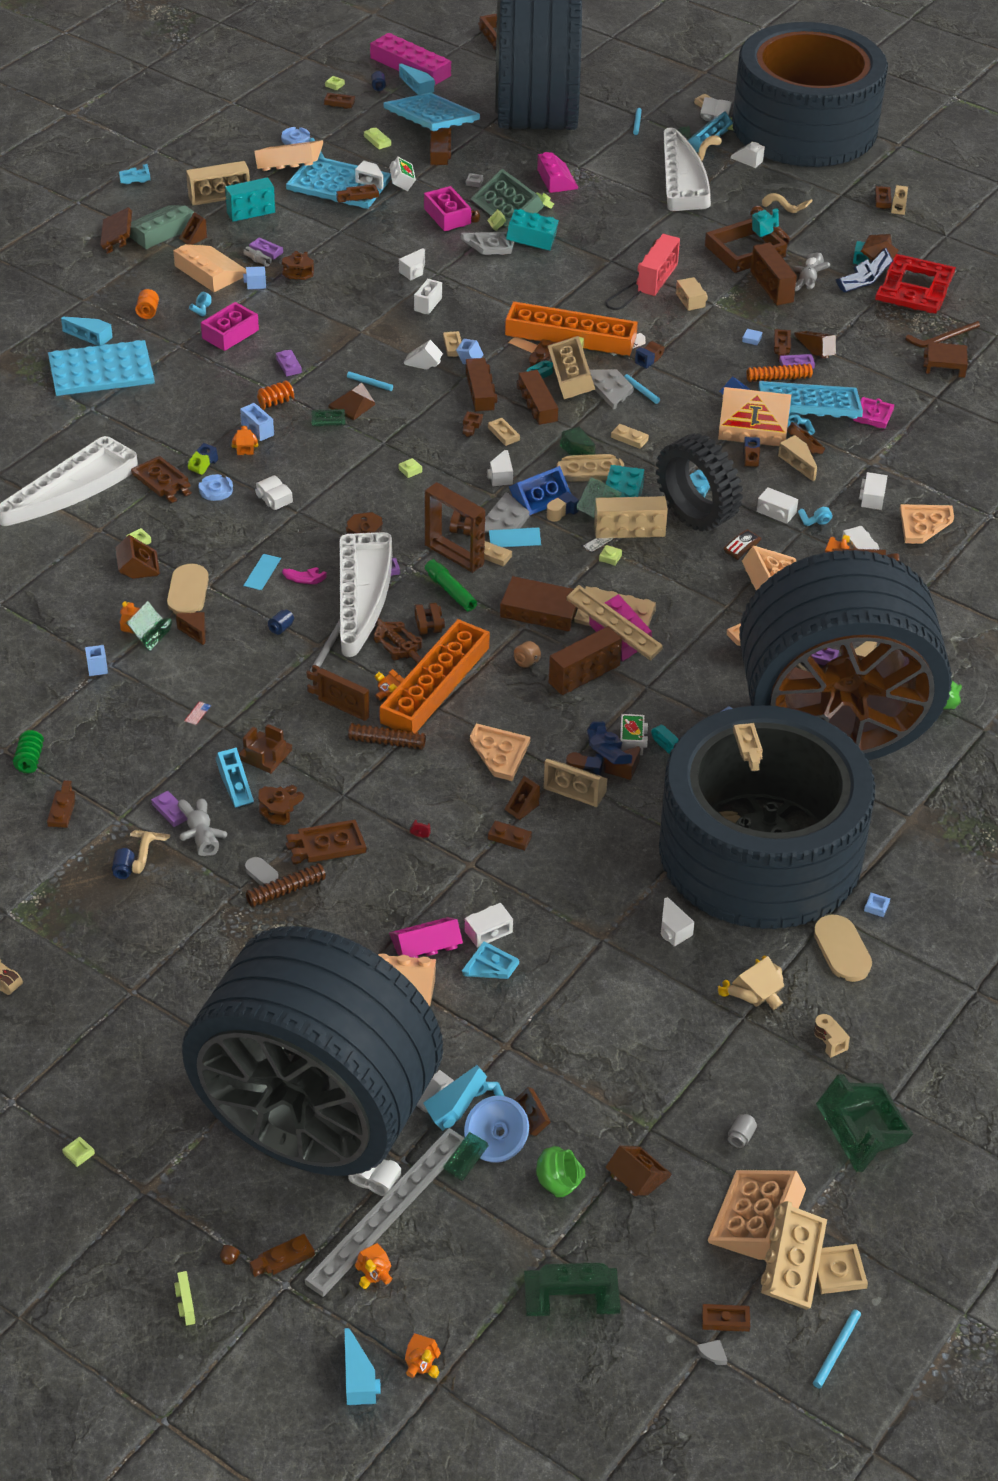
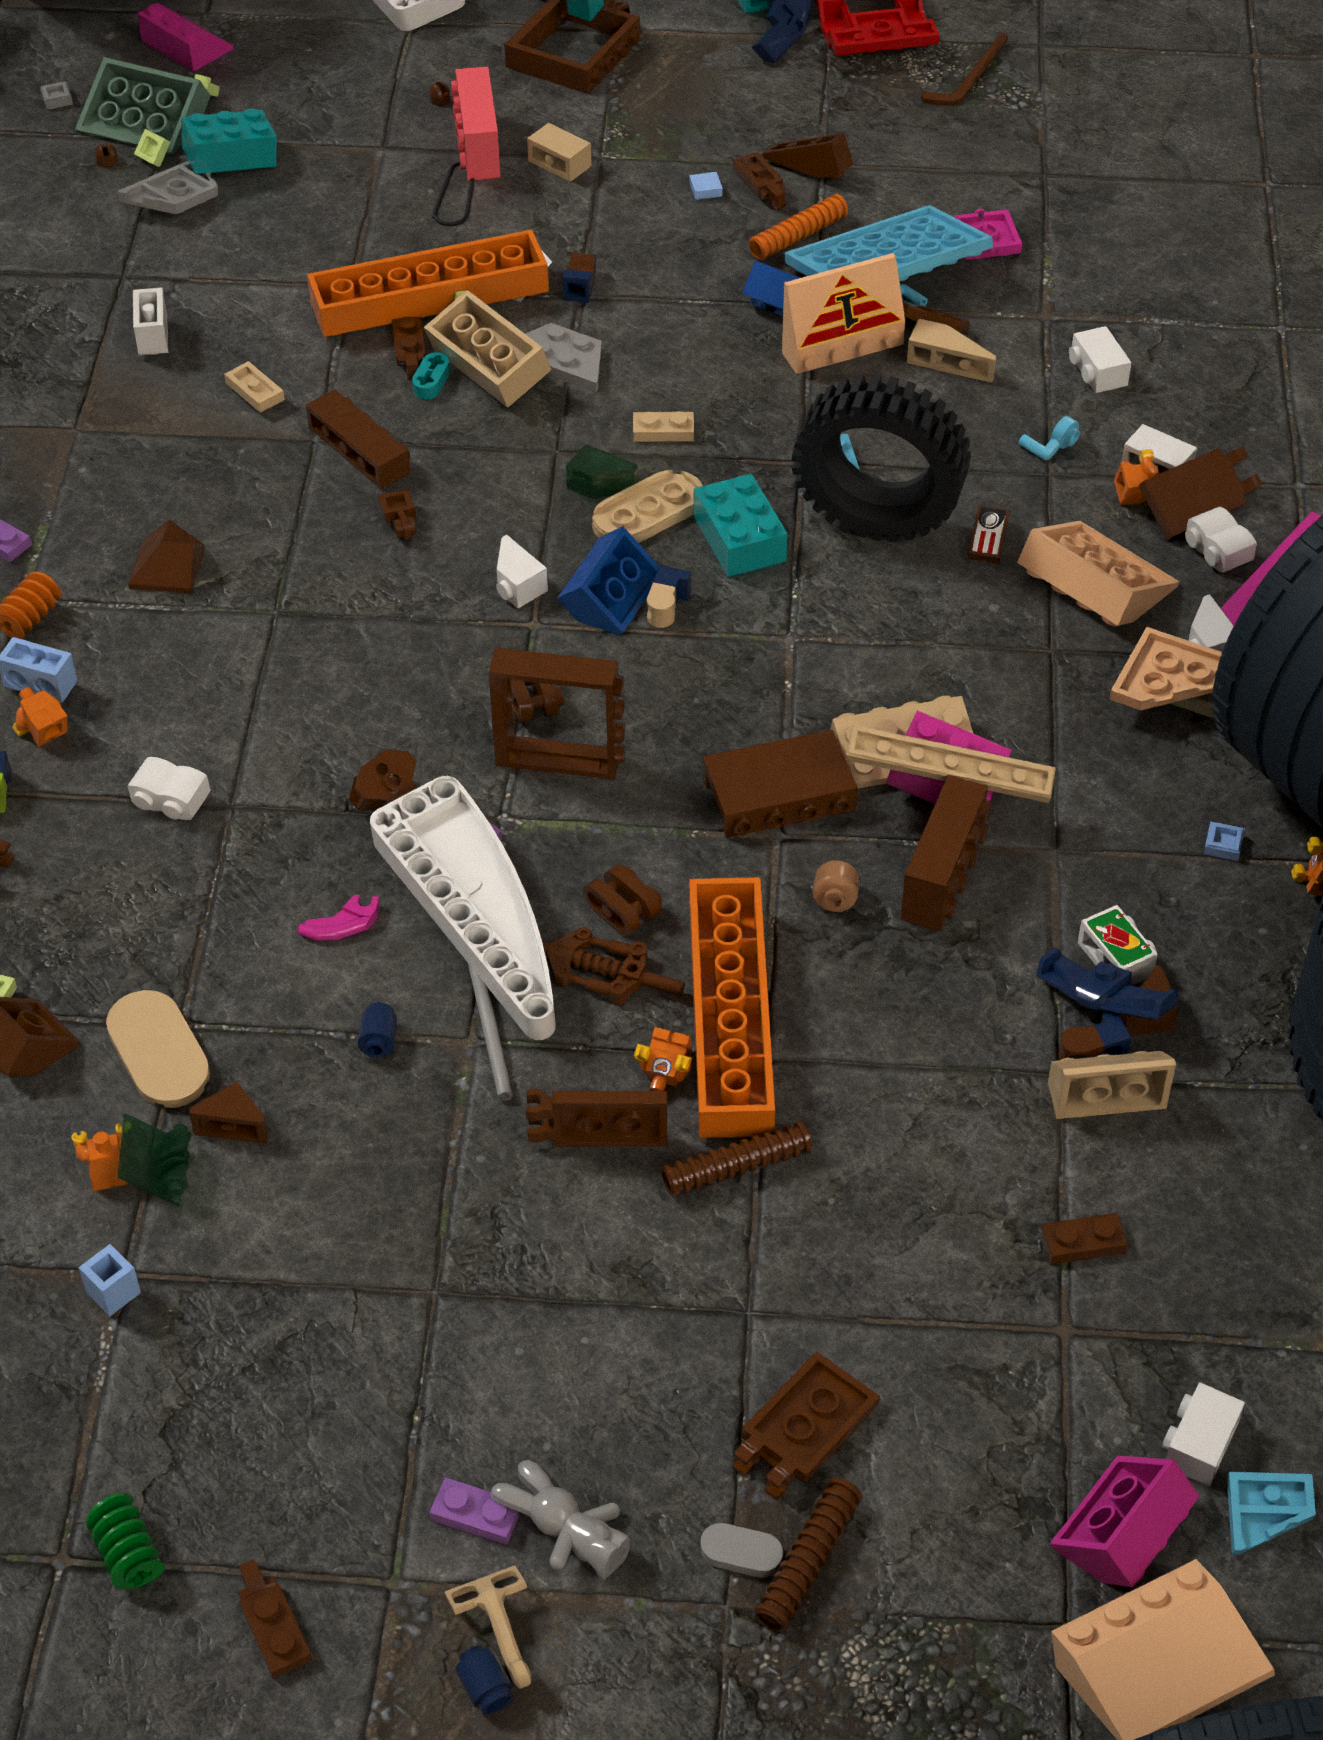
camera: 30 degrees left, 5 degrees up
(197, 713) = (366, 1286): sticker -> none
(215, 487) = (51, 826): light blue tile -> none
(234, 777) = (546, 1385): medium azure slope -> none
(262, 572) = (260, 948): medium azure sticker -> none
(265, 749) = (550, 1296): reddish brown panel -> none
(279, 802) = (666, 1394): reddish brown hinge -> none
(328, 417) = (149, 606): clear green plate -> none
(370, 381) = (167, 510): medium azure bar -> none
(410, 468) = (360, 637): yellowish green plate -> none
(412, 264) = (75, 277): white slope -> none
(420, 829) = (937, 1308): dark red piece -> none
(424, 356) = (225, 428): white slope -> none
(441, 576) = (577, 810): green piece -> none
(447, 208) = (58, 158): dark pink brick -> none
(469, 349) = (297, 388): light blue brick -> none
(496, 554) = (638, 728): tan plate -> none
(499, 749) = (938, 1085): light nougat plate -> none
(503, 431) = (463, 505): tan plate -> none
(506, 515) = (587, 639): light grey wing -> none
(515, 537) = (641, 680): medium azure sticker -> none
(524, 344) = (365, 340): light nougat sticker -> none
(524, 798) = (1056, 1158): reddish brown slope -> none
(537, 397) = (469, 421): reddish brown brick -> none
(594, 490) = (724, 558): clear green hinge -> none
(596, 543) = (766, 631): sticker -> none
(610, 555) = (807, 644): yellowish green plate -> none
(630, 517) = (797, 565): tan brick -> none
(642, 389) = (617, 340): medium azure bar -> none
(664, 737) = (1174, 930): teal beam -> none
(751, 454) = (874, 366): reddish brown leg -> none
(773, 273) = (661, 71): reddish brown brick -> none
(777, 505) = (992, 444): white brick -> none
(797, 359) = (806, 197): medium lavender plate -> none
(809, 273) = (704, 48): light grey animal -> none
(924, 521) = (1207, 377): light nougat plate -> none
(946, 356) = (1013, 104): reddish brown panel -> none

